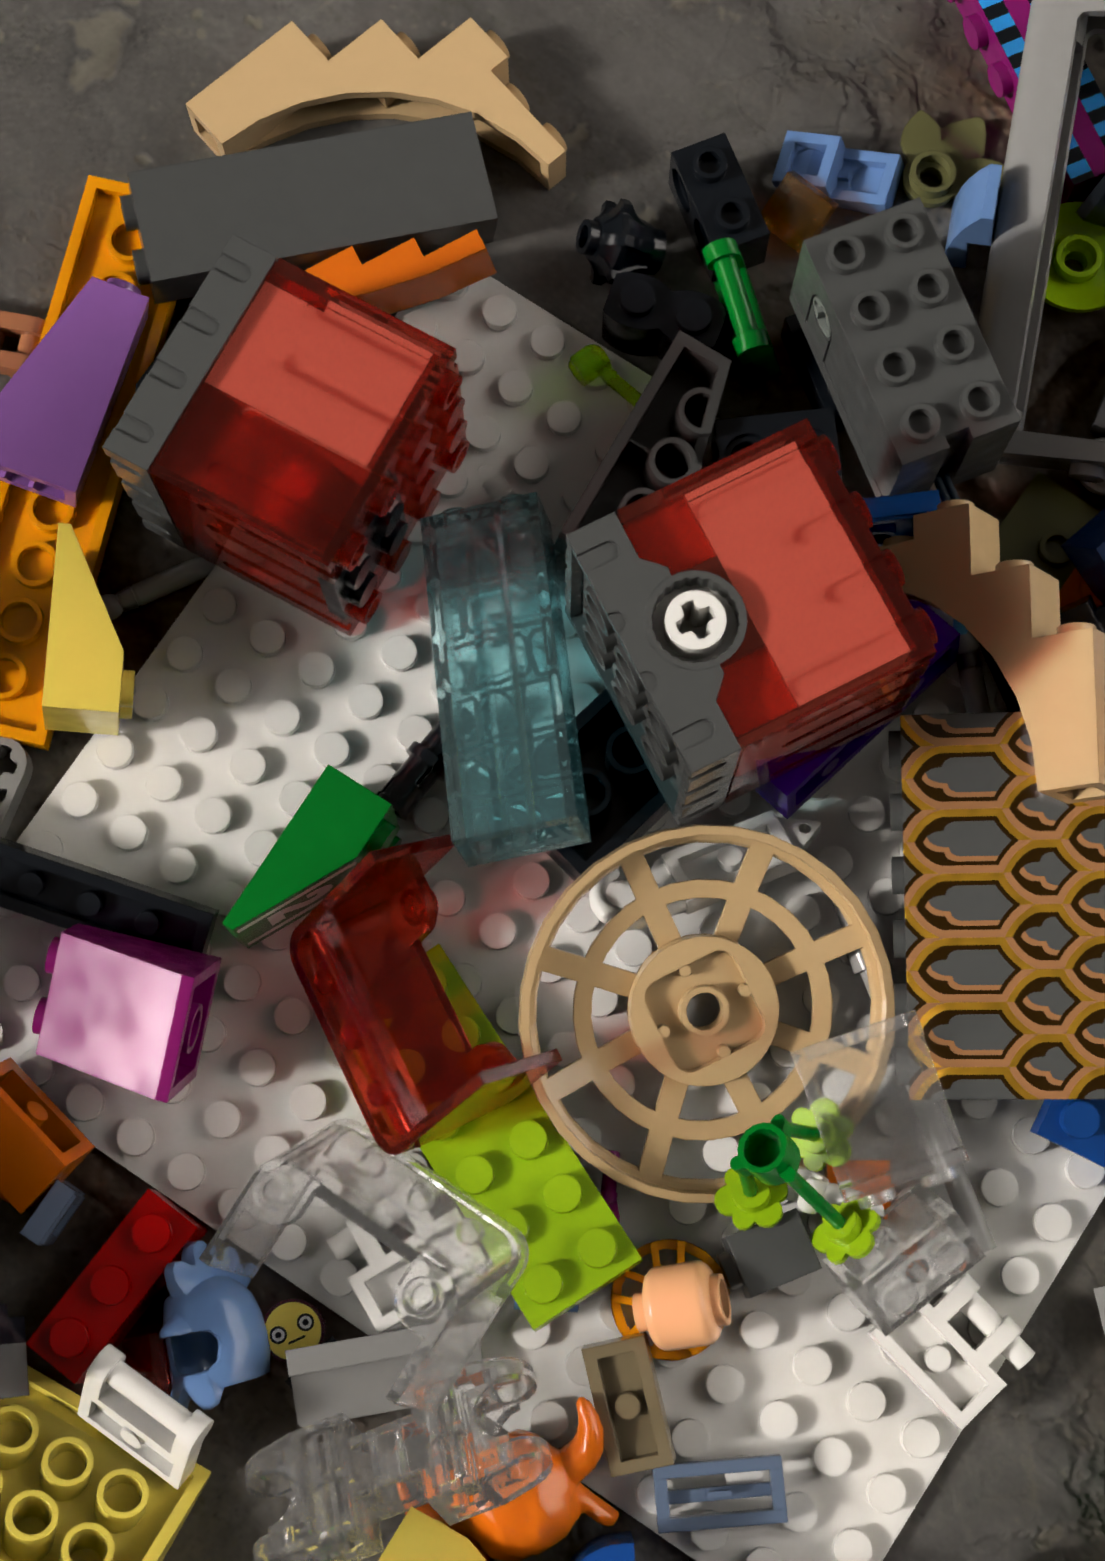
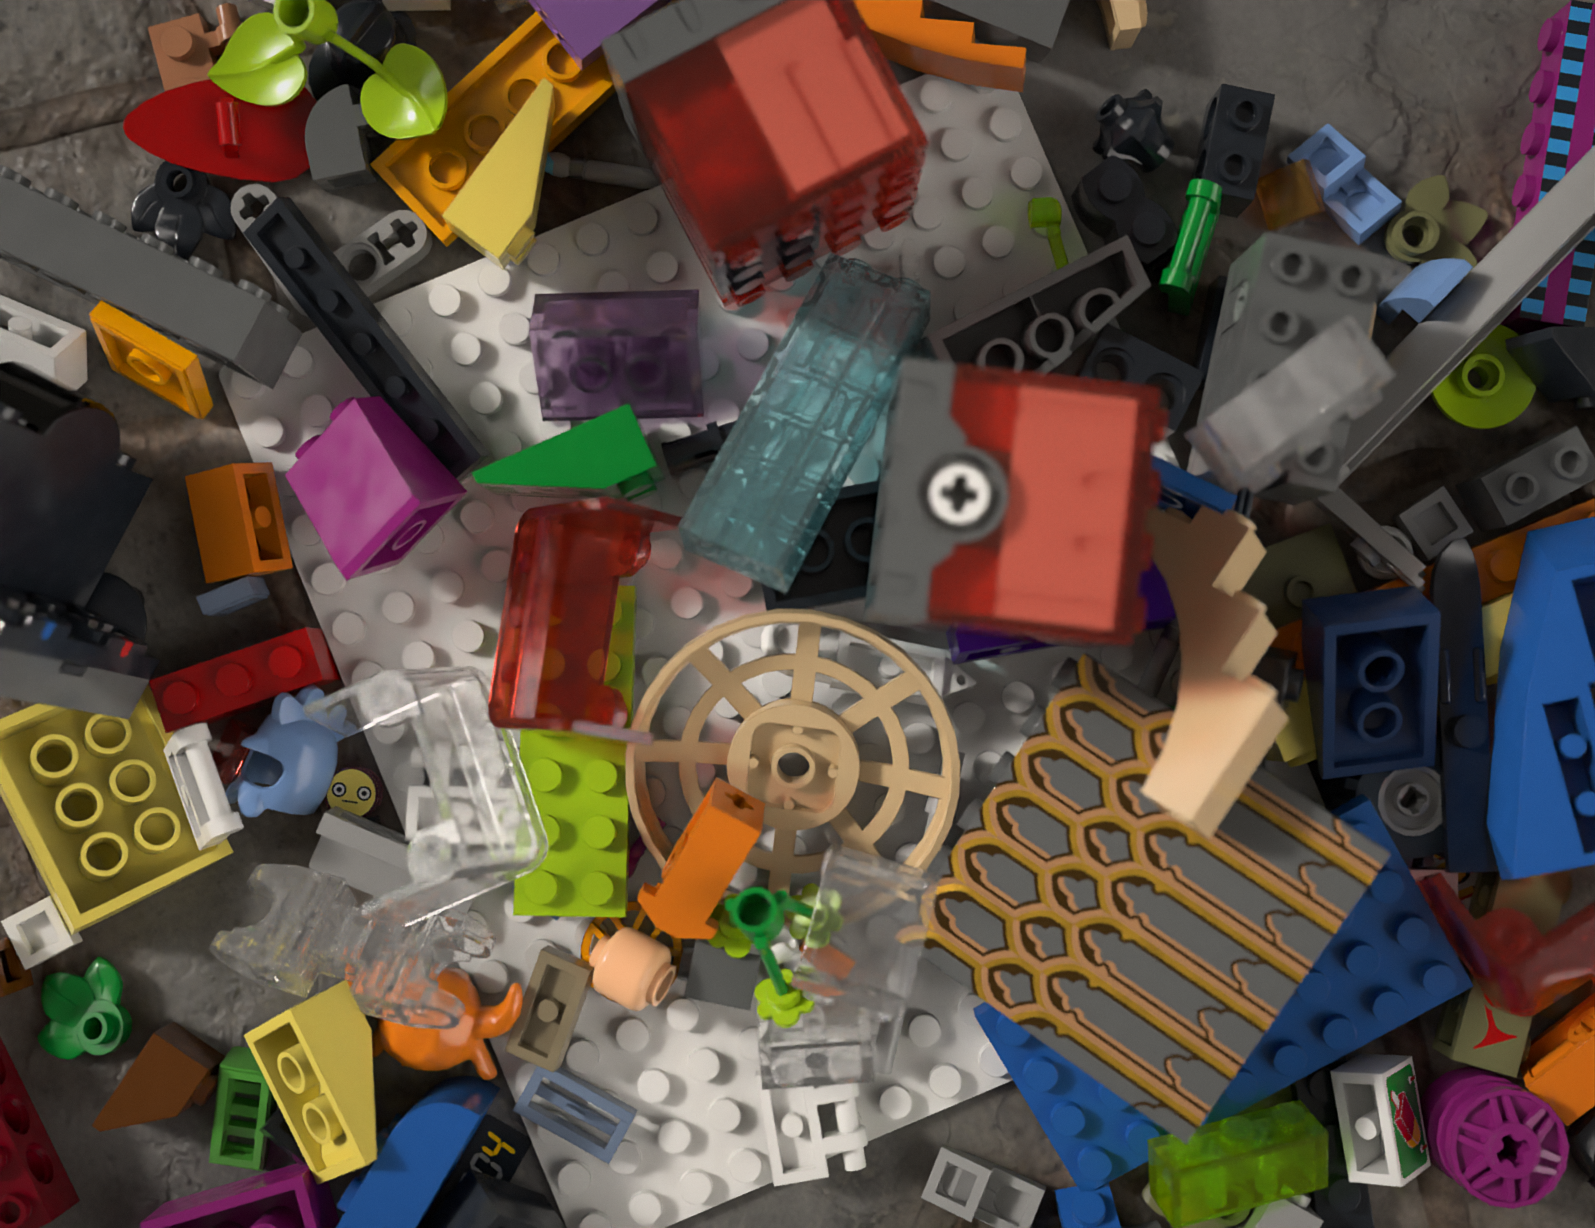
camera: 35 degrees right, 10 degrees up
(277, 734) = (616, 351): none -> clear purple slope
(683, 1151) = (704, 863): none -> orange piece
(930, 369) = (1292, 407): none -> clear brick

